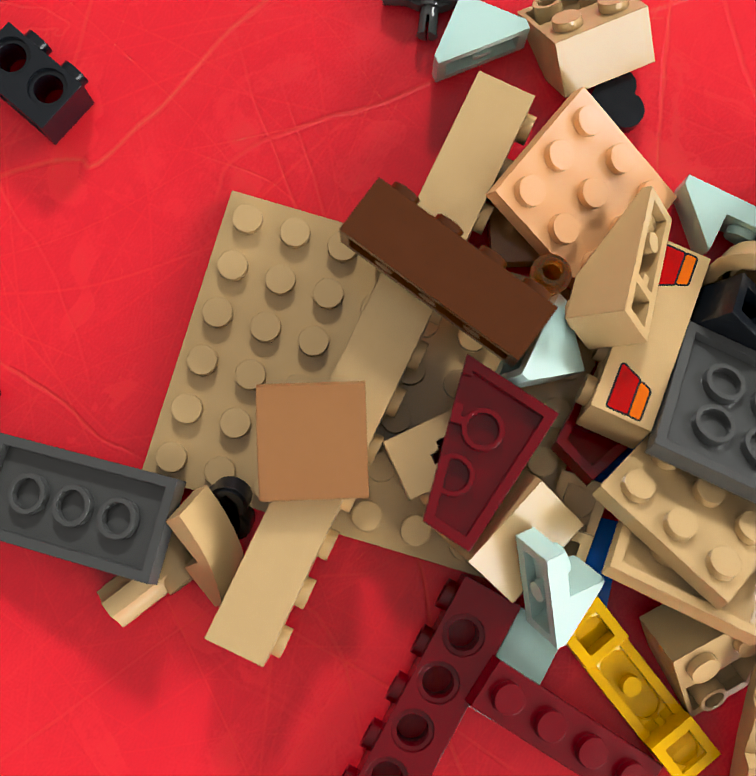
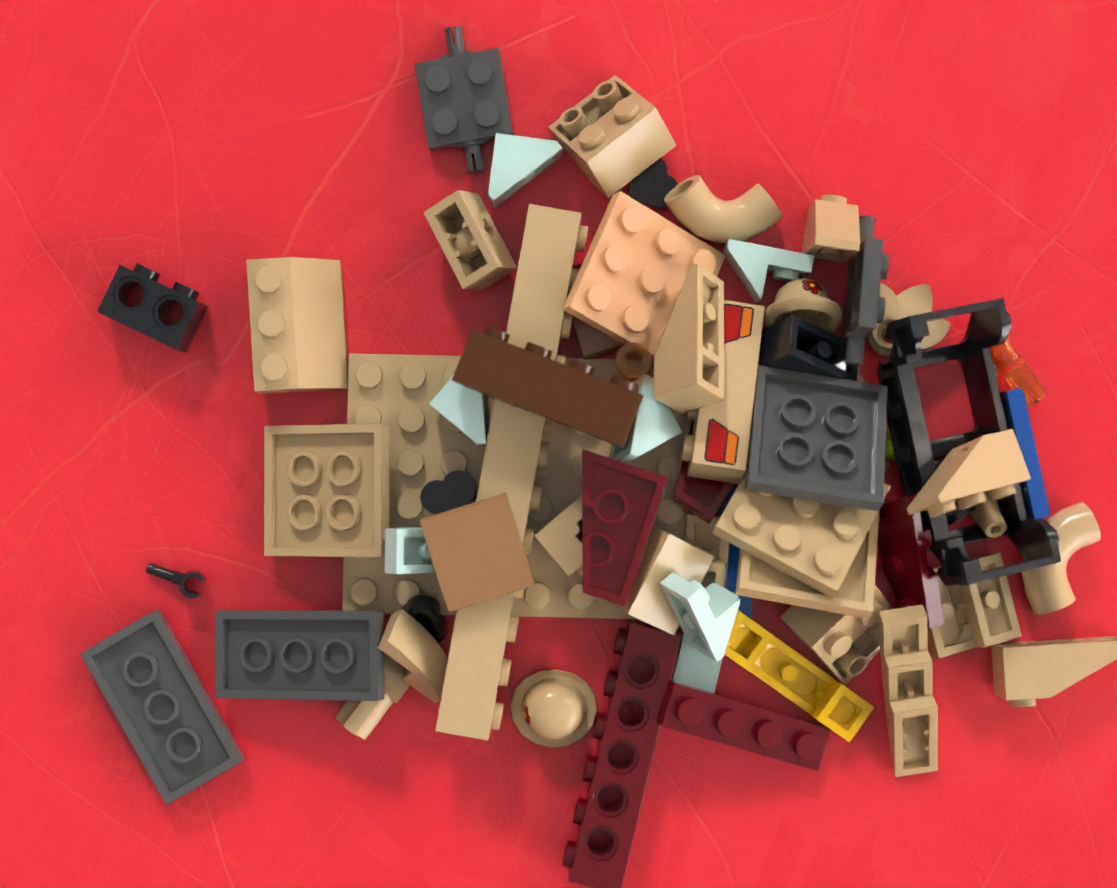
camera: 15 degrees left, 5 degrees up
(163, 330) = (326, 490): none -> tan plate
(183, 143) = (297, 325): none -> tan slope
(231, 419) = (406, 551): none -> light aqua slope
(306, 366) = (452, 492): none -> black tile
(341, 278) = (464, 409): none -> light aqua slope
(349, 651) = (553, 708): none -> tan hat
(400, 100) = (470, 240): none -> tan brick
(678, 153) = (720, 219): none -> tan cylinder

